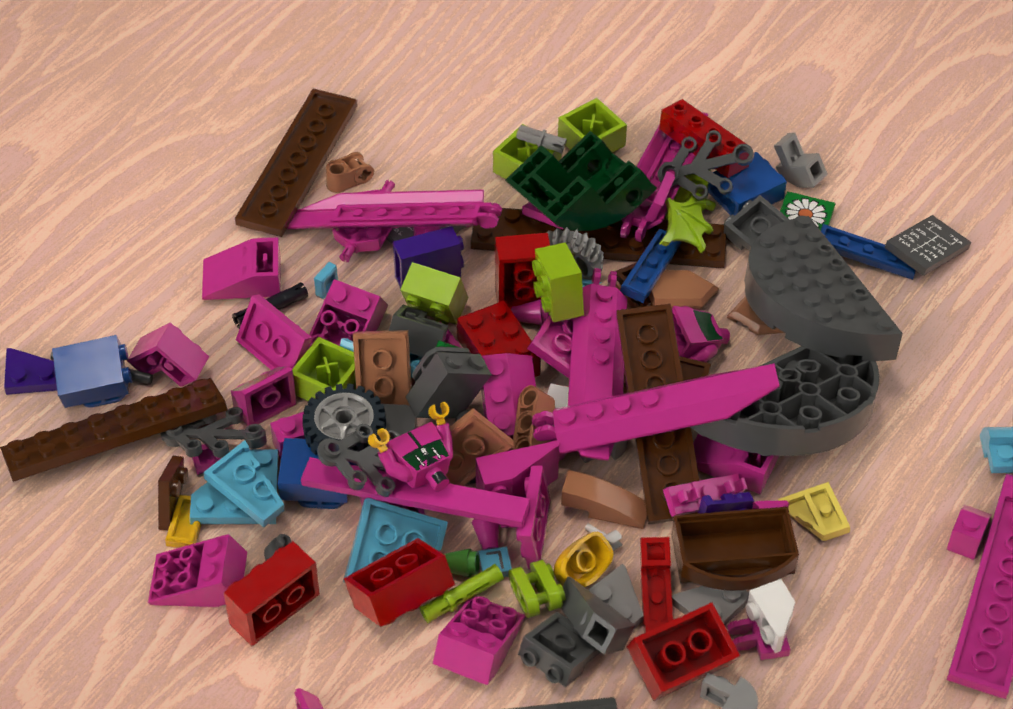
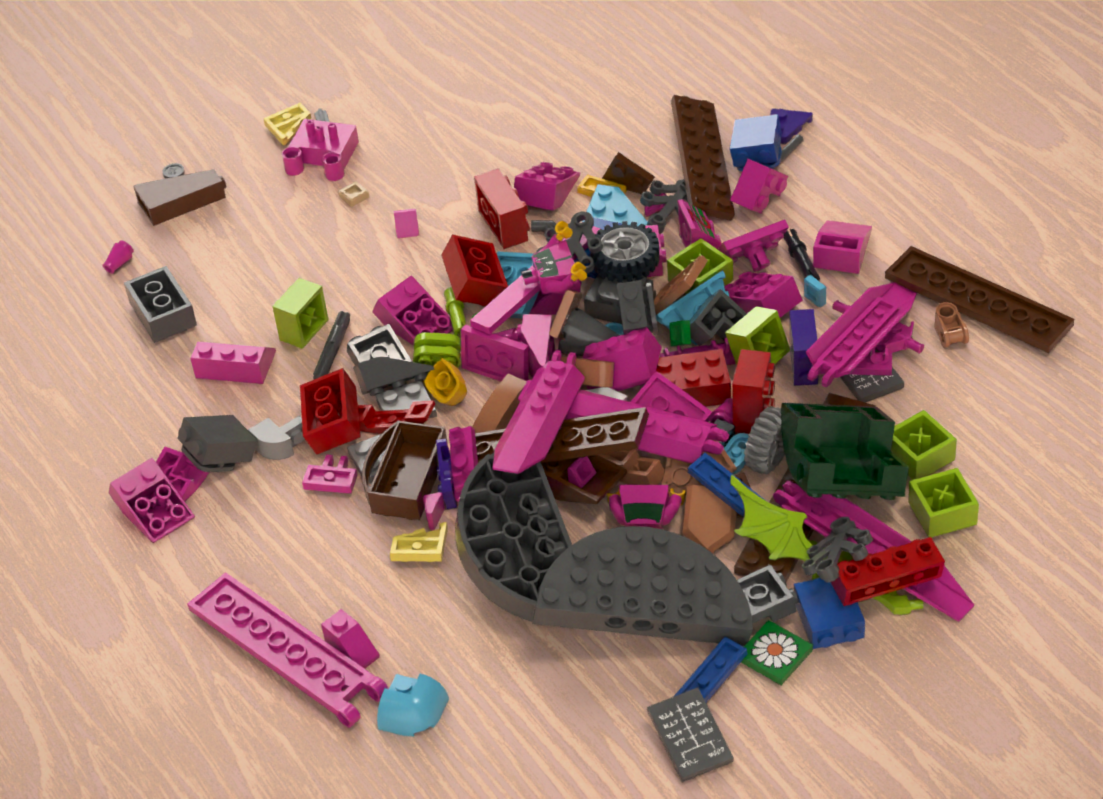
camera: 115 degrees right, 5 degrees down
(244, 483) = (609, 205): medium azure wing -> none
(541, 138) = (919, 439): light grey axle -> none
(558, 282) = (704, 388): lime brick -> none
(613, 537) = (463, 409): white hand -> none
(659, 196) = (810, 506): dark pink plate -> none
(772, 610) = (329, 470): white slope -> none
(795, 166) = (843, 662): light grey brick -> none

